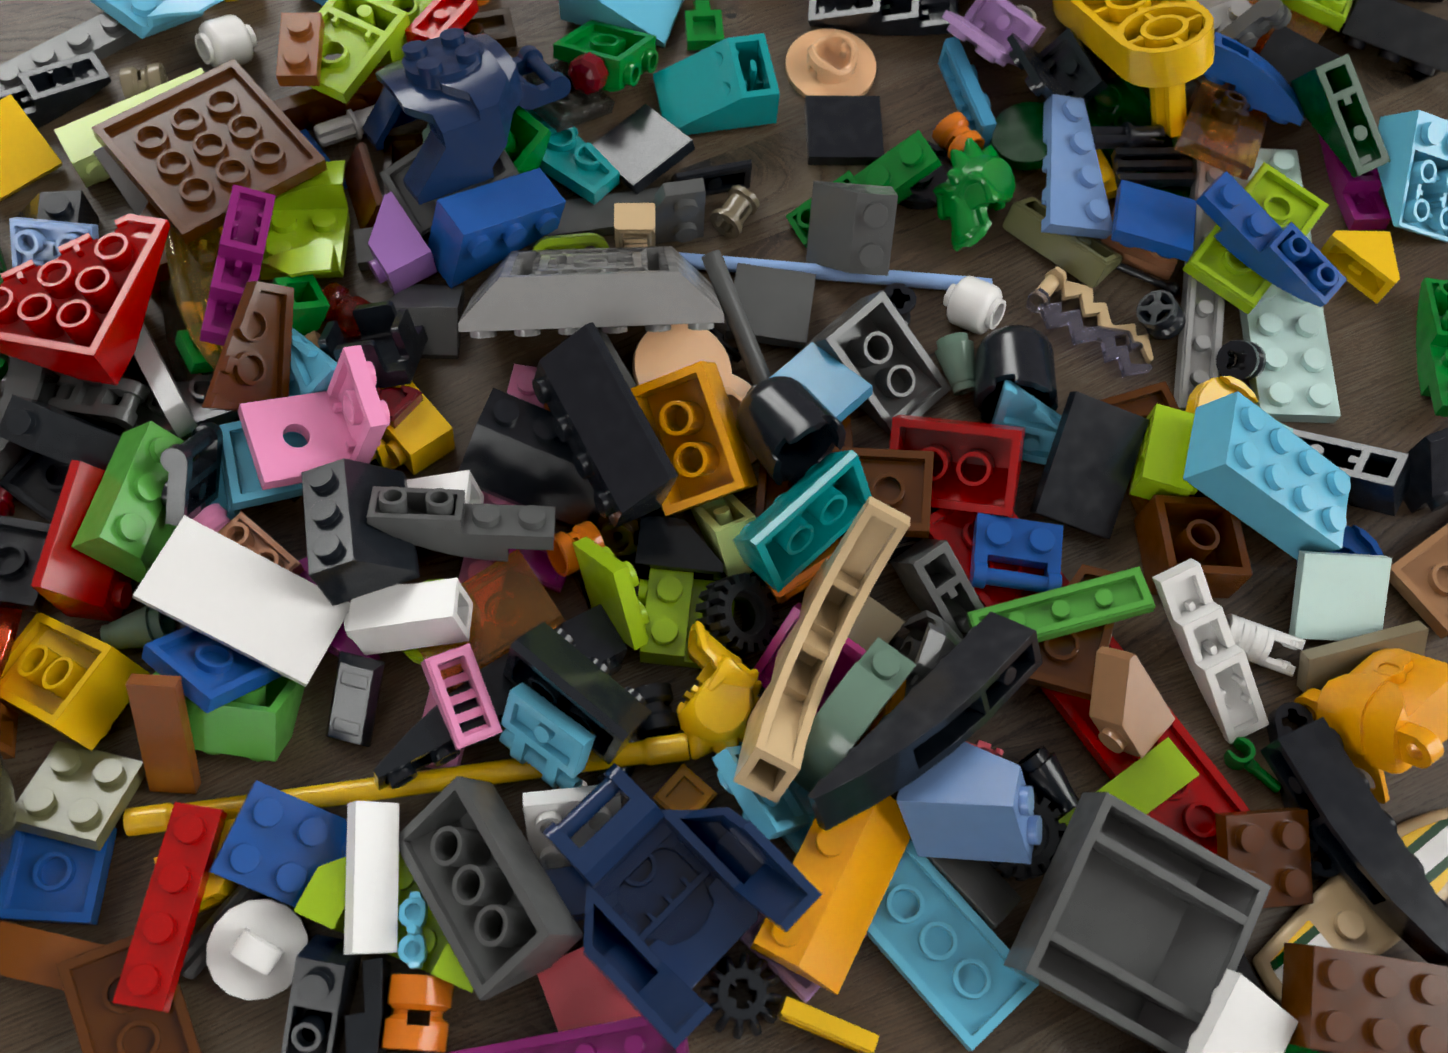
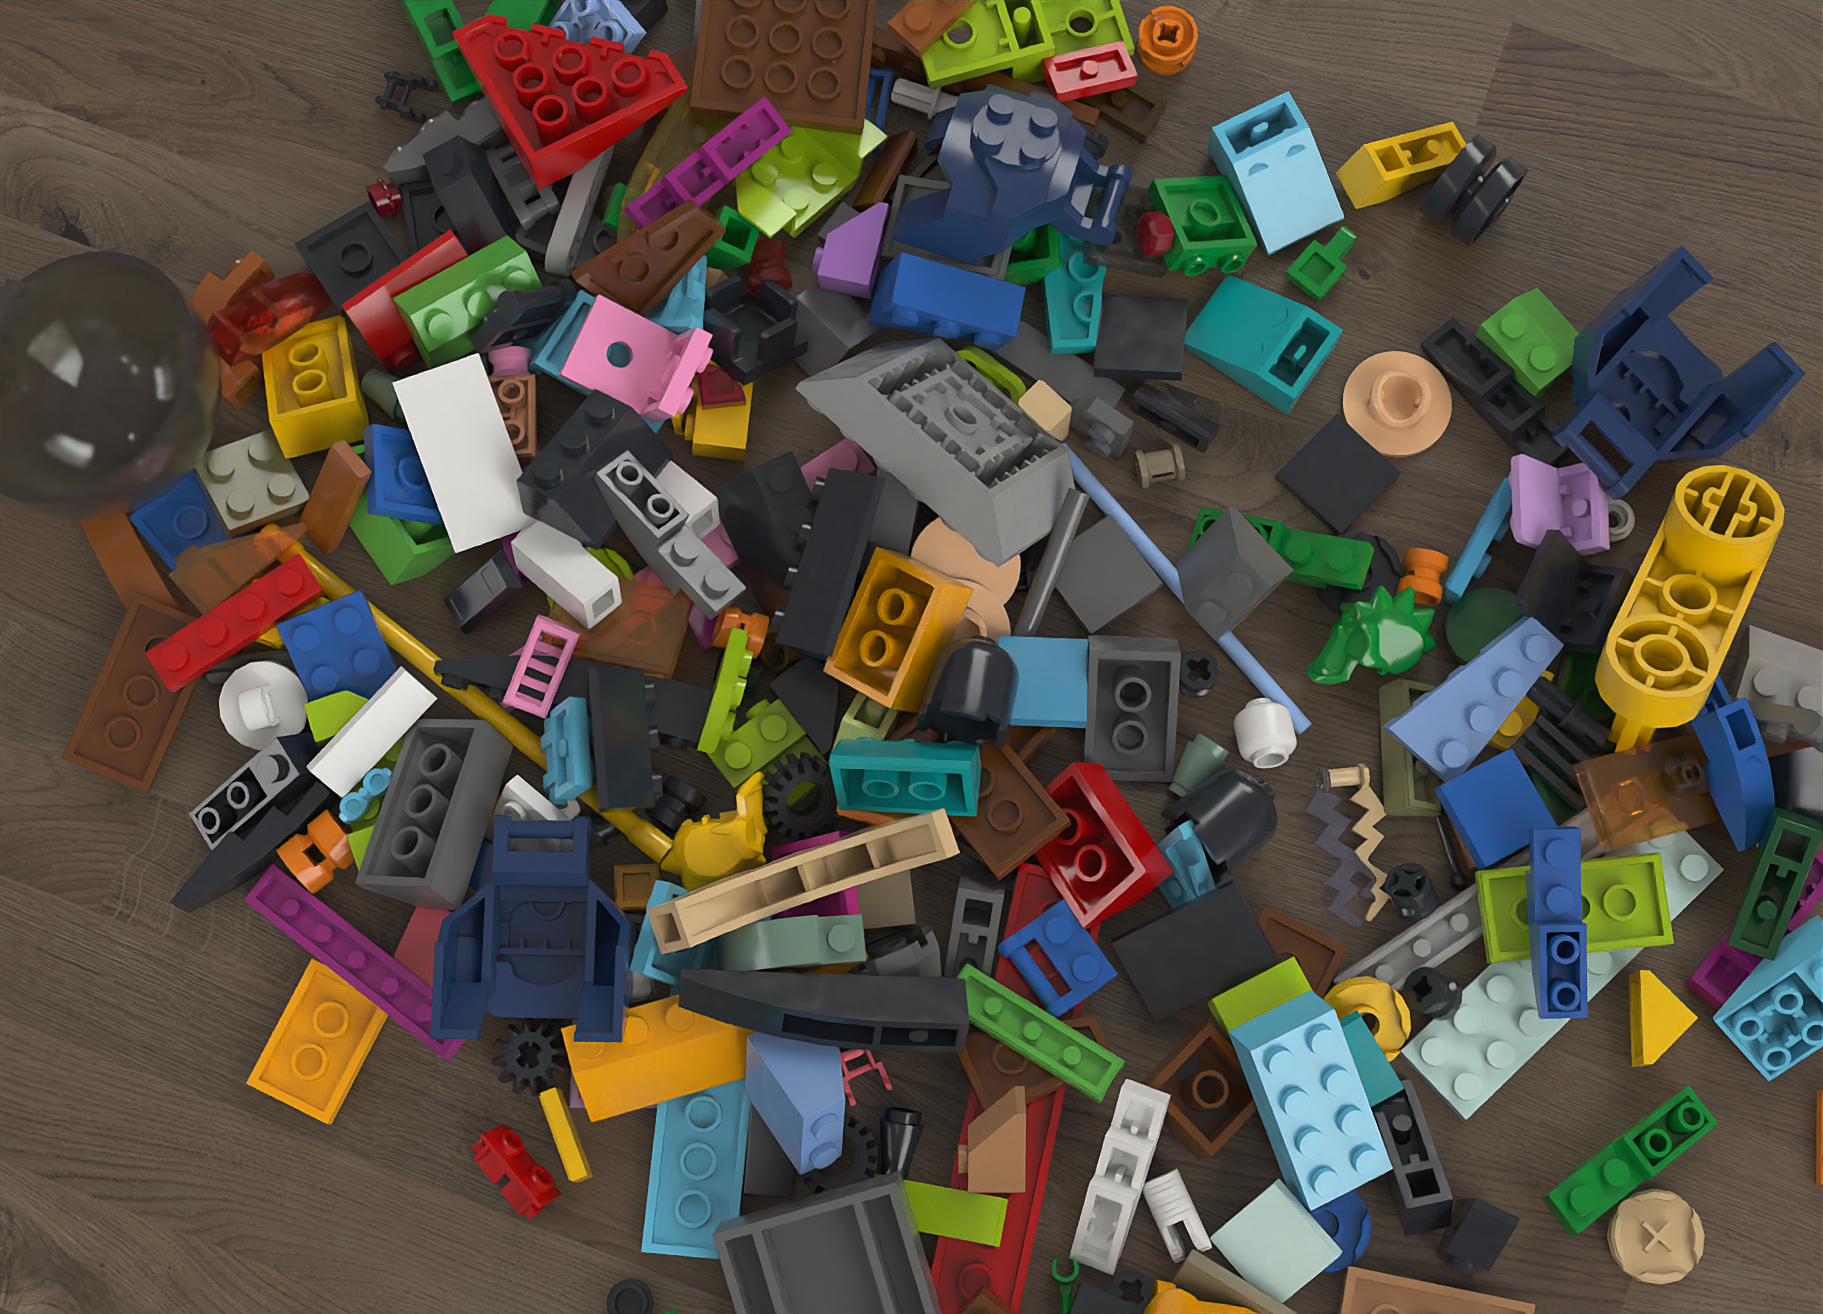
camera: 55 degrees right, 10 degrees up
(122, 867) = (225, 568): none -> clear orange slope

